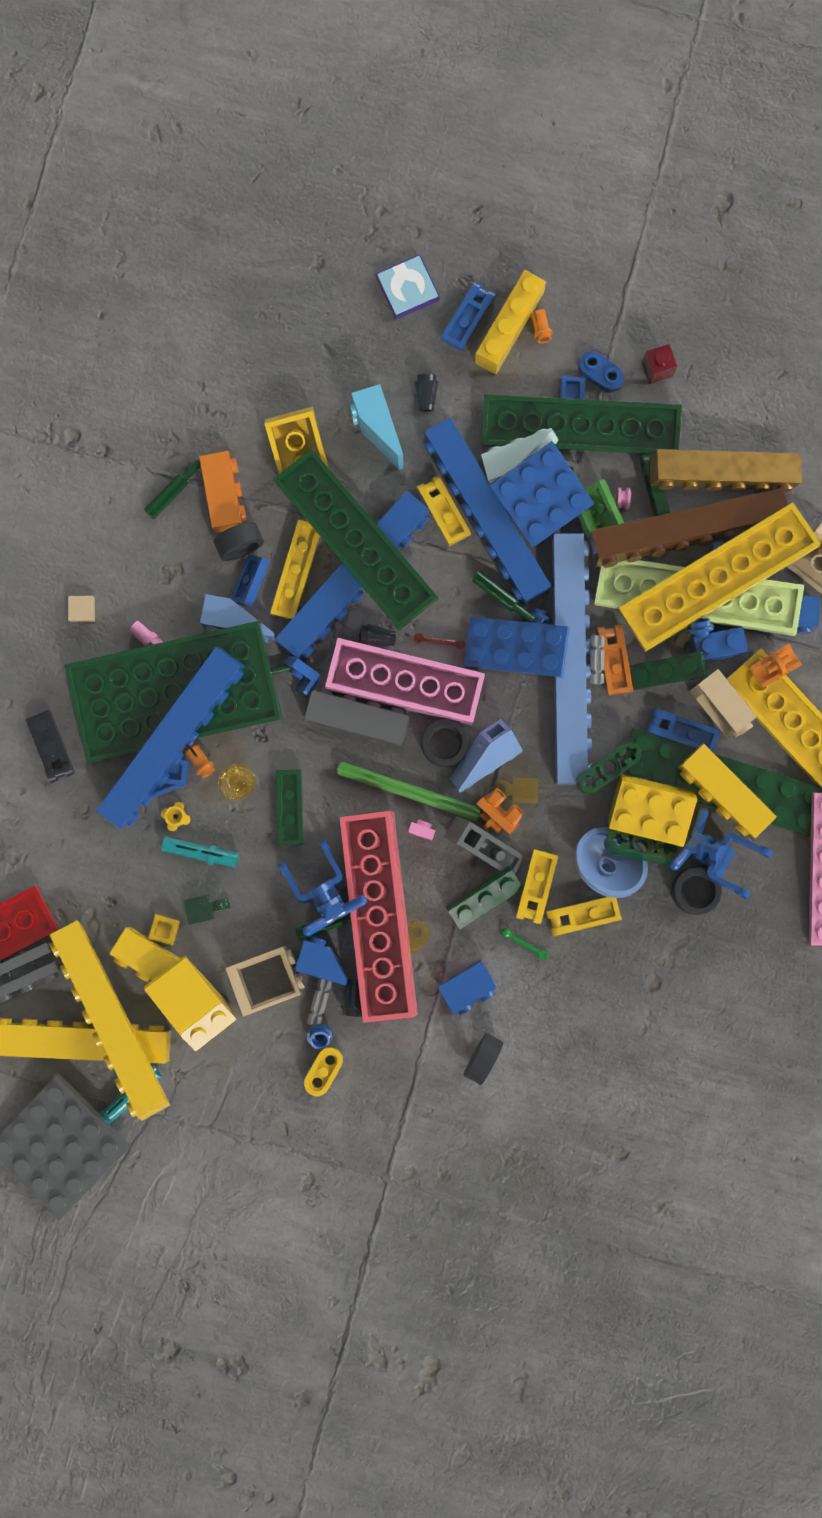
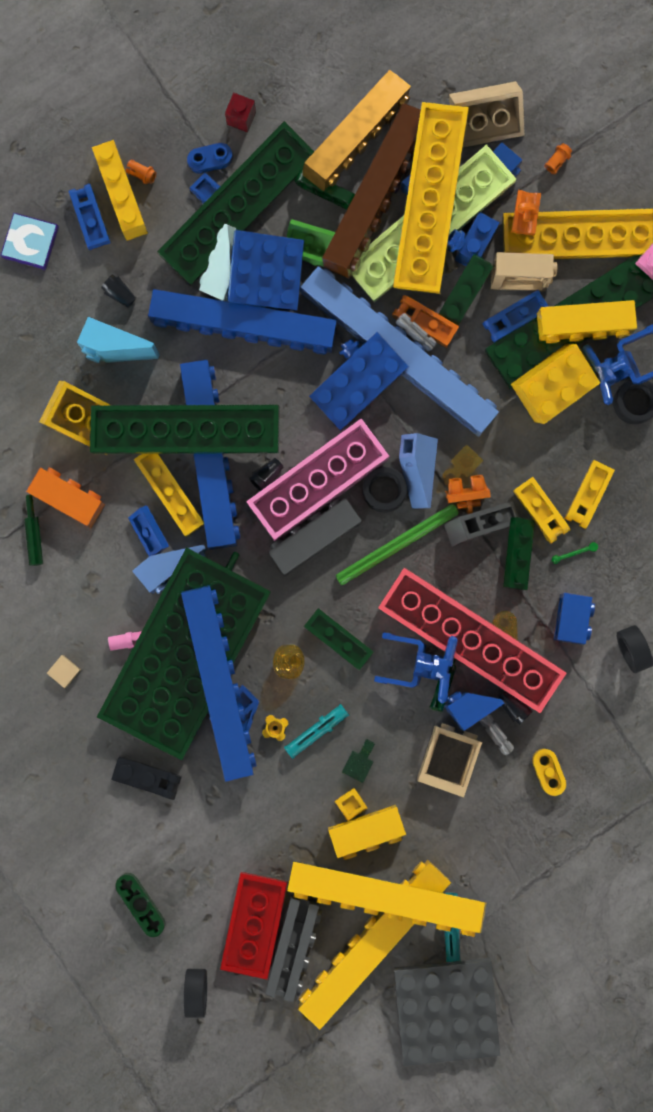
camera: 55 degrees left, 0 degrees up
(190, 1003) = (423, 827): yellow slope -> none
(200, 762) = (251, 676): orange pin -> none
(238, 541) = (113, 515): black tyre -> none
(307, 676) = (252, 547): blue bracket -> none
(319, 1042) = (526, 755): blue plate -> none
(419, 638) = (292, 445): clear red hinge -> none
(422, 829) = (434, 557): bright pink plate -> none
(444, 511) = (216, 351): yellow plate -> none
(501, 595) = (313, 361): dark green axle -> none
(618, 752) = (507, 380): dark green beam -> none
(623, 498) = (315, 218): bright pink bush -> none
(623, 874) = (569, 434): medium blue dish -> none
(630, 851) = (571, 423): dark green beam -> none

